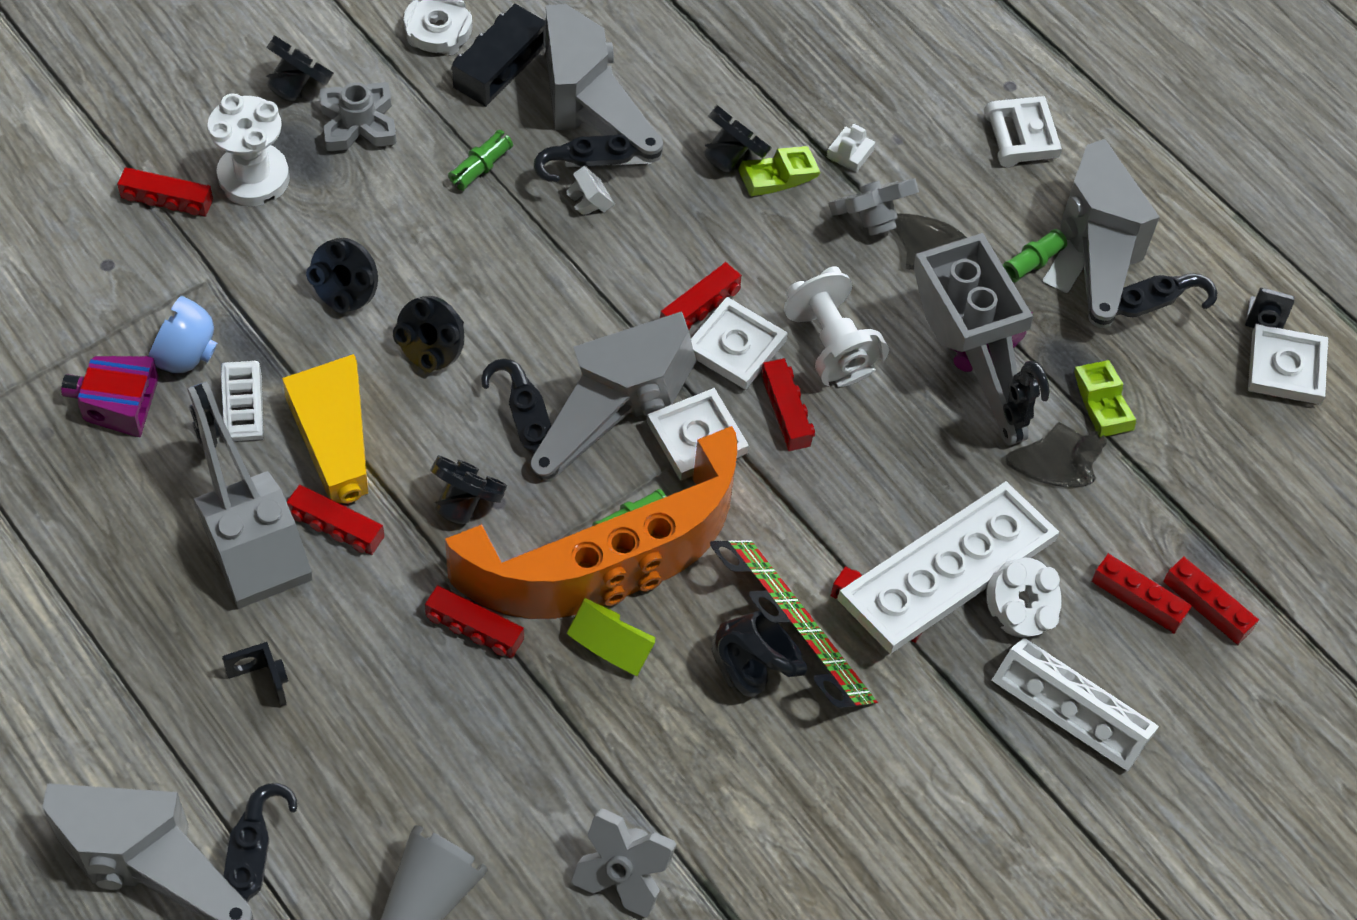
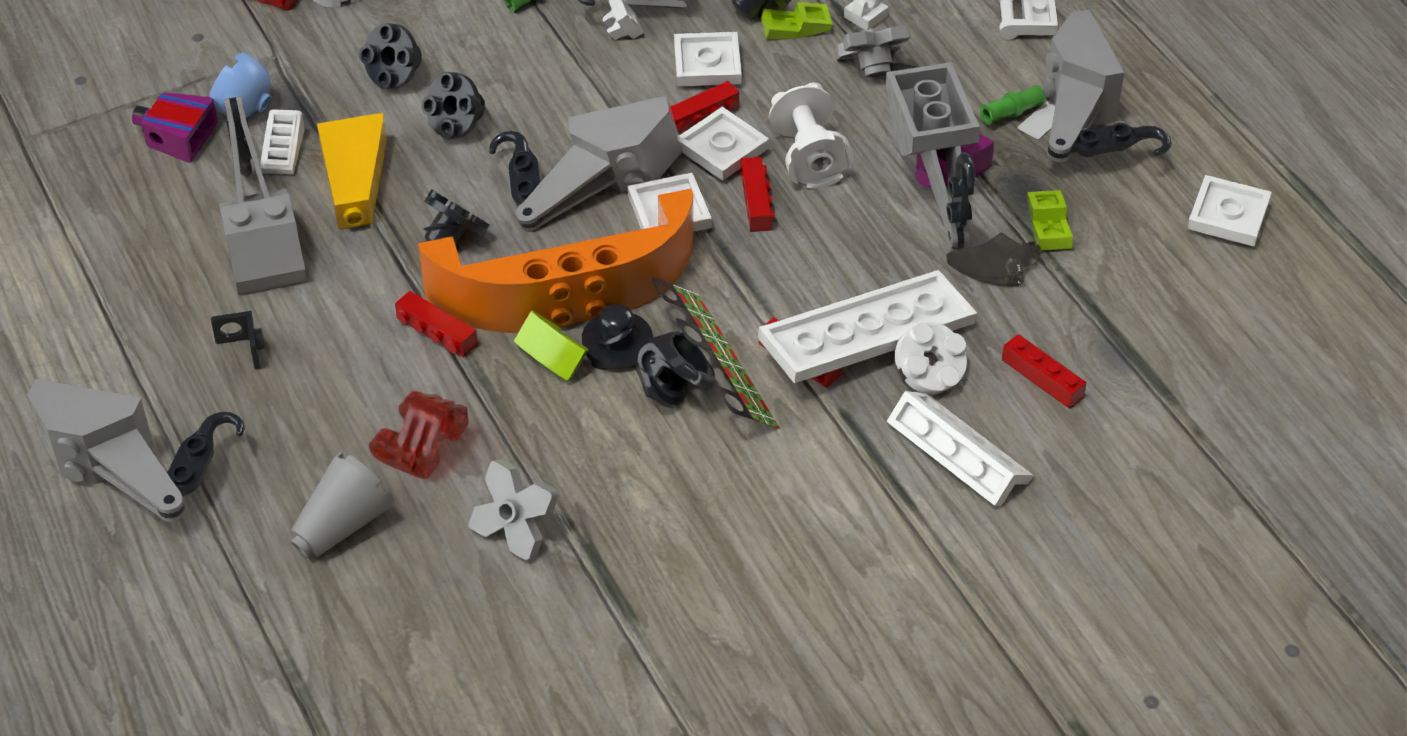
camera: 15 degrees right, 10 degrees down
(336, 520) = (337, 236): red piece -> none
(503, 777) = (425, 425): none -> clear red piece
(679, 615) = (615, 337): none -> black plate
(694, 233) = (707, 58): none -> white plate
(1211, 600) = (1108, 384): red piece -> none
(1269, 309) = (1220, 161): black bracket -> none

